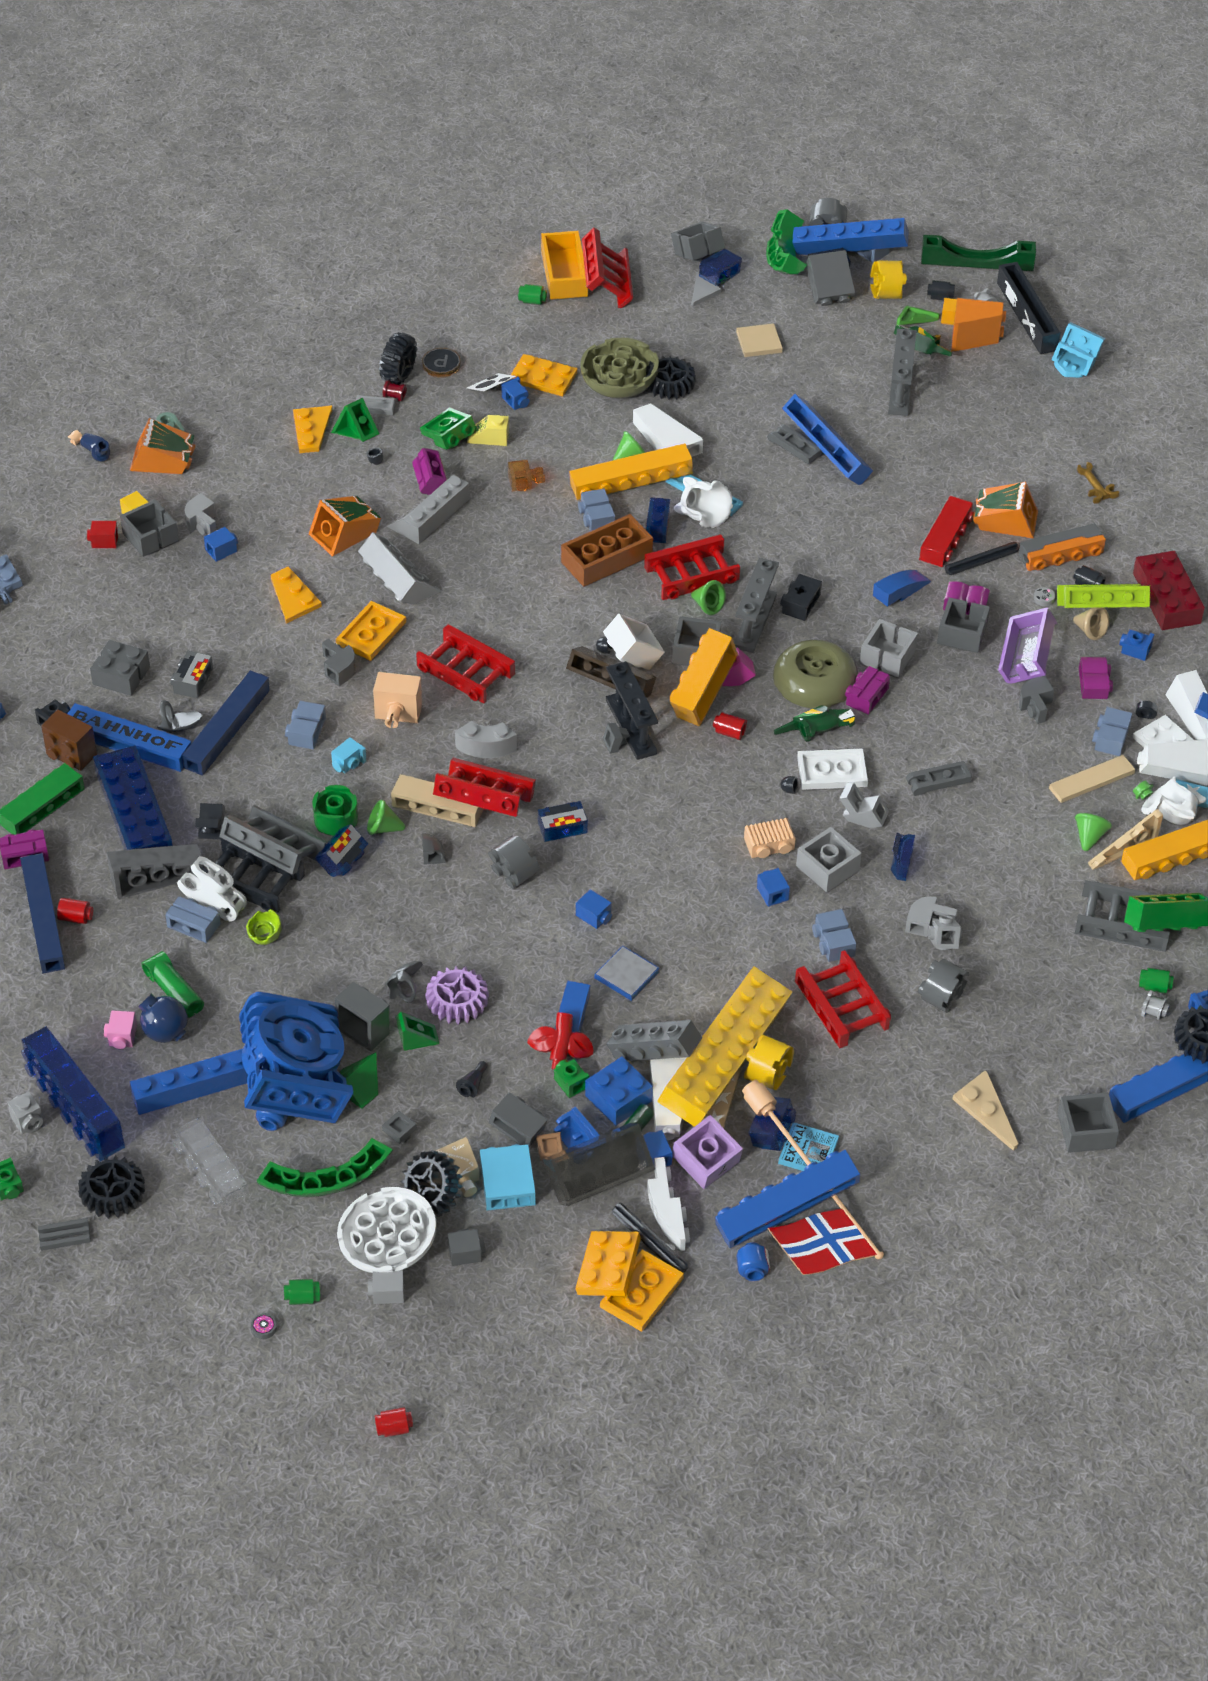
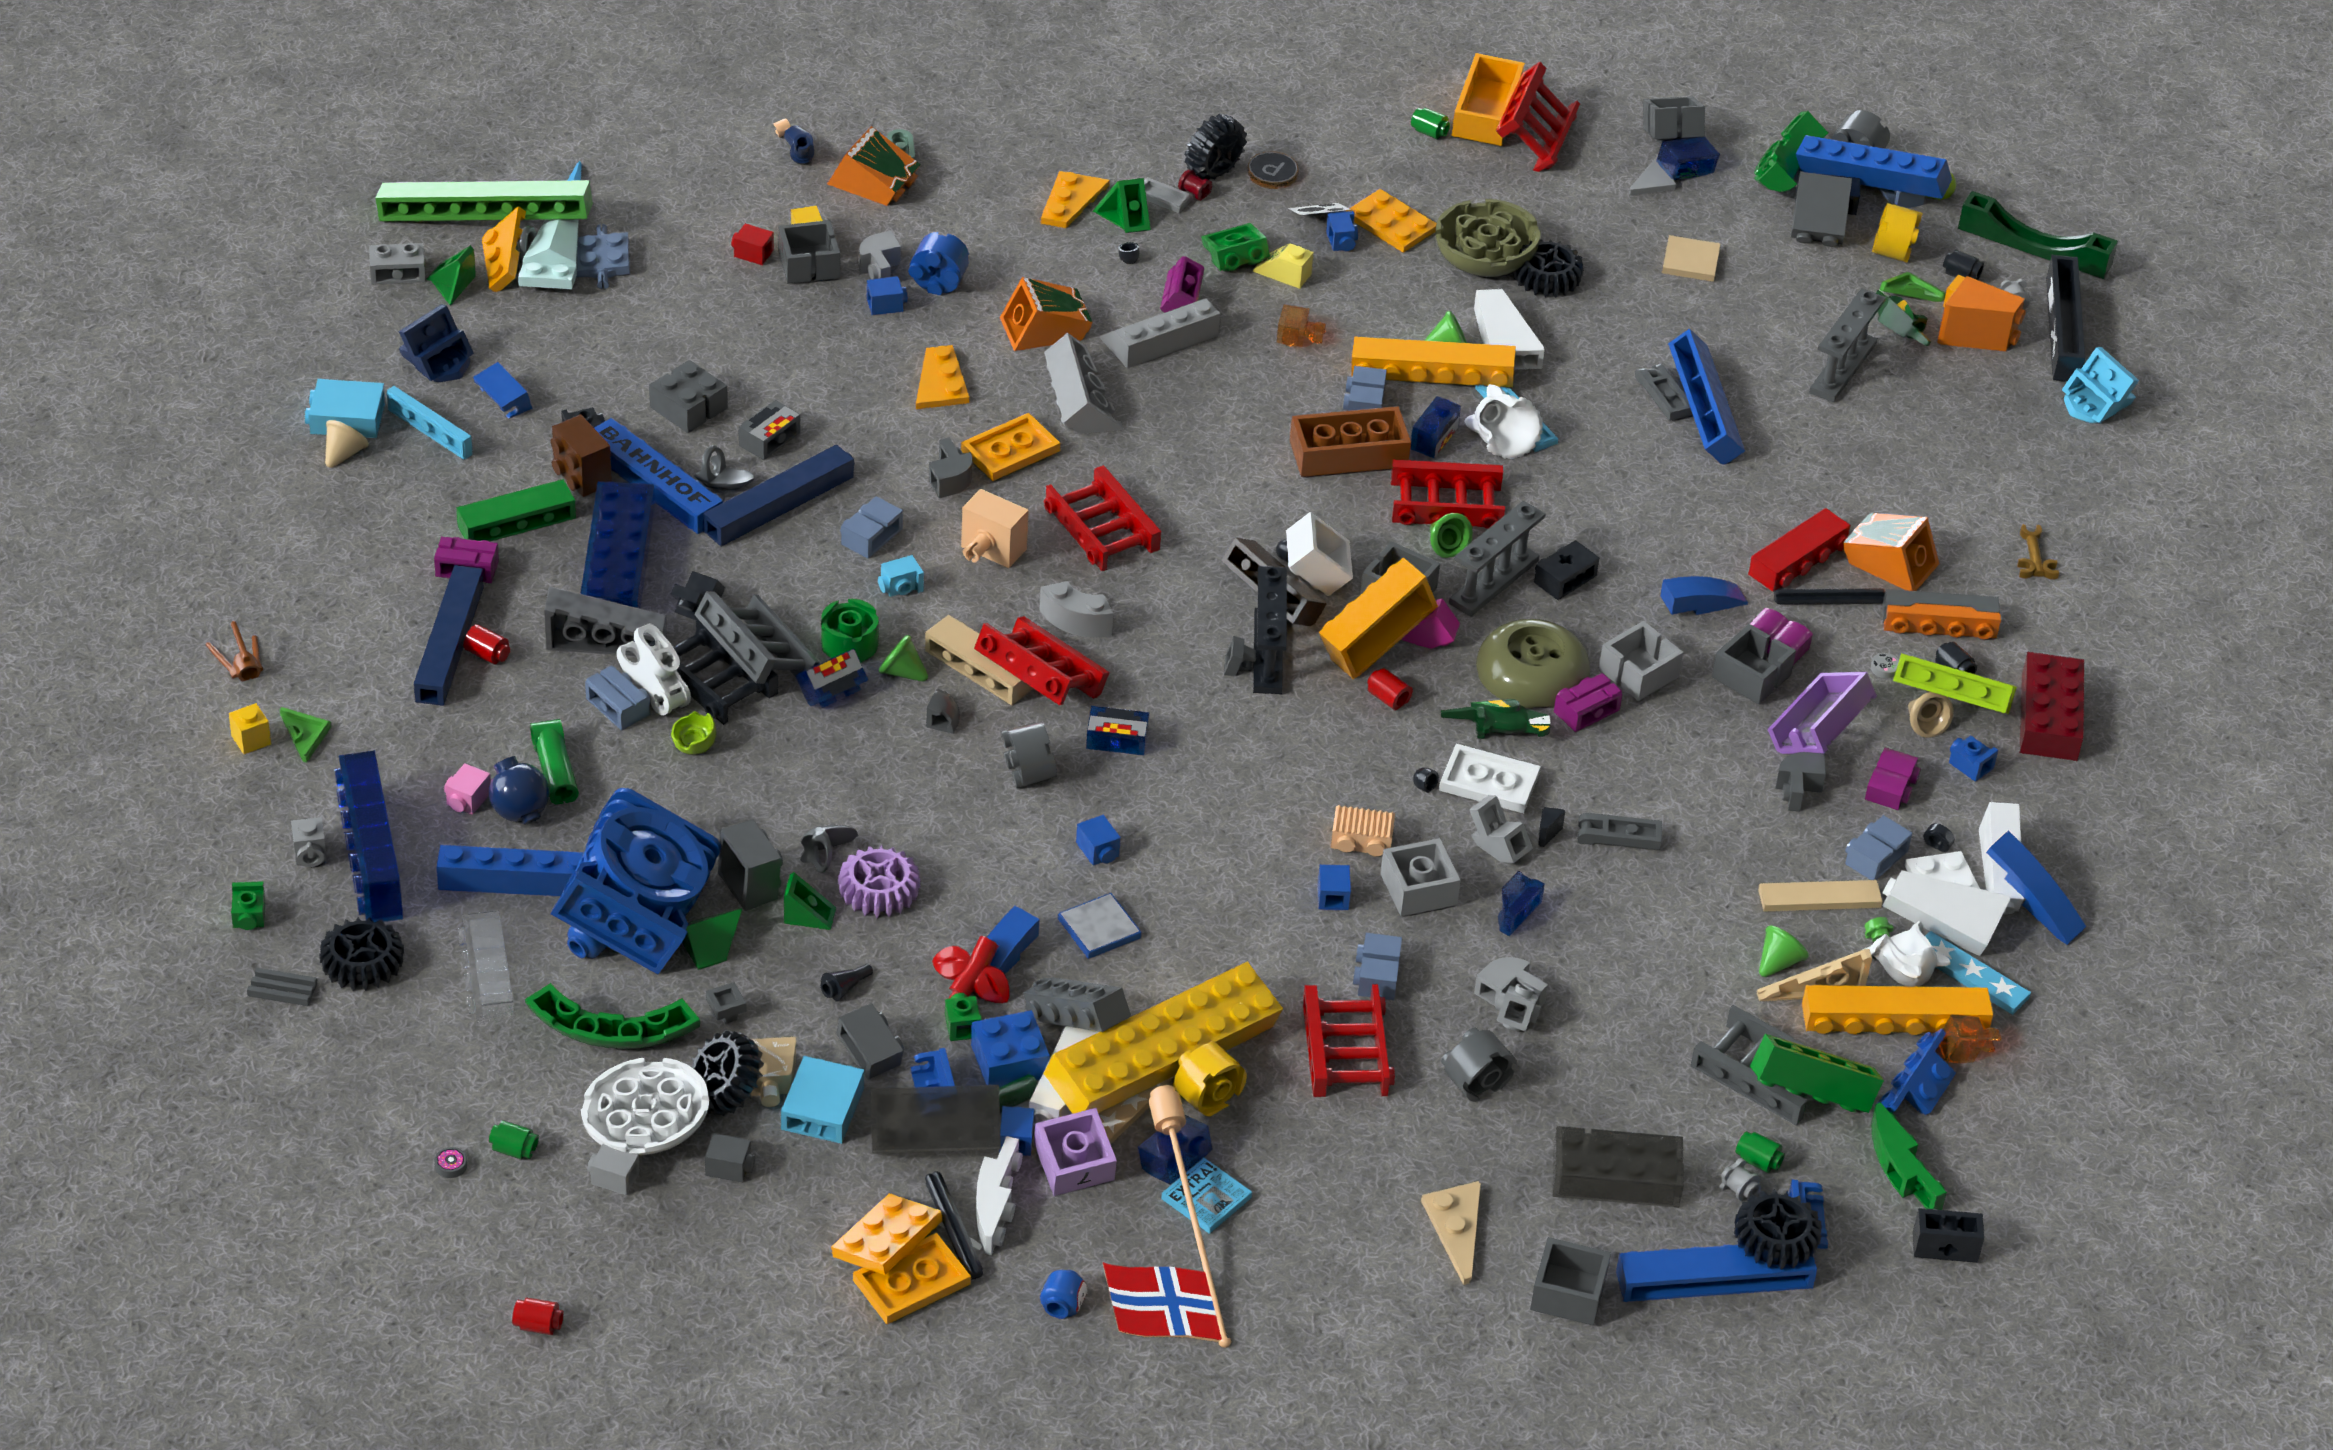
camera: 20 degrees right, 5 degrees down
(249, 507) = (939, 263): none -> blue brick
(549, 1144) = (895, 1078): medium nougat tile -> none
(787, 1198) = (1140, 1235): blue brick -> none
(890, 789) = (1550, 824): none -> black slope
(1071, 1026) = (1618, 1167): none -> clear smoke piece

